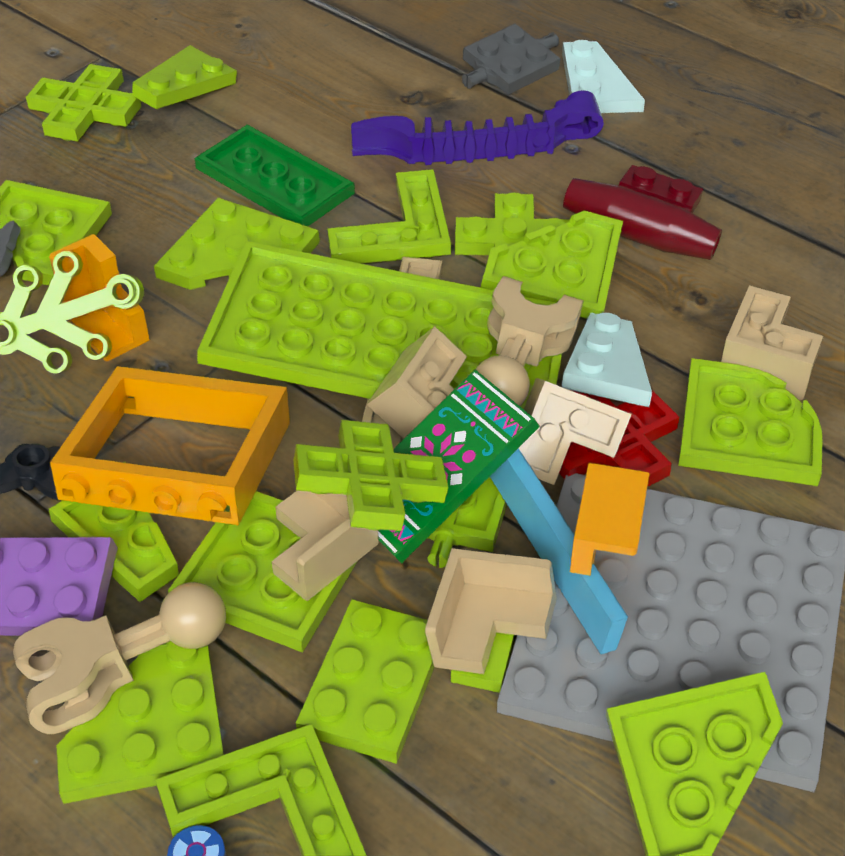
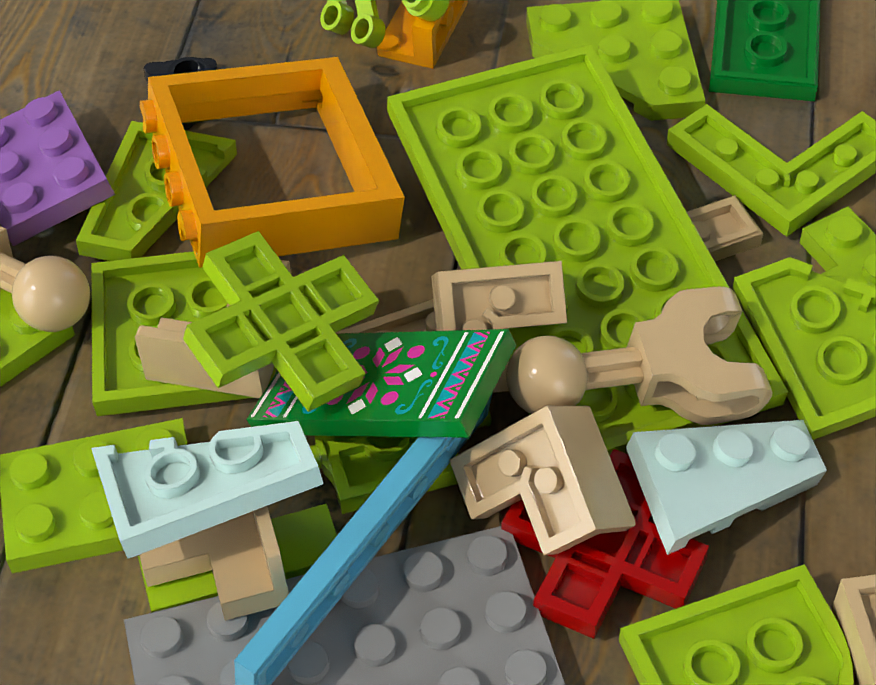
camera: 60 degrees right, 5 degrees up
(468, 579) = (192, 487): none -> light aqua wing
(608, 514) = (367, 568): light orange panel -> none

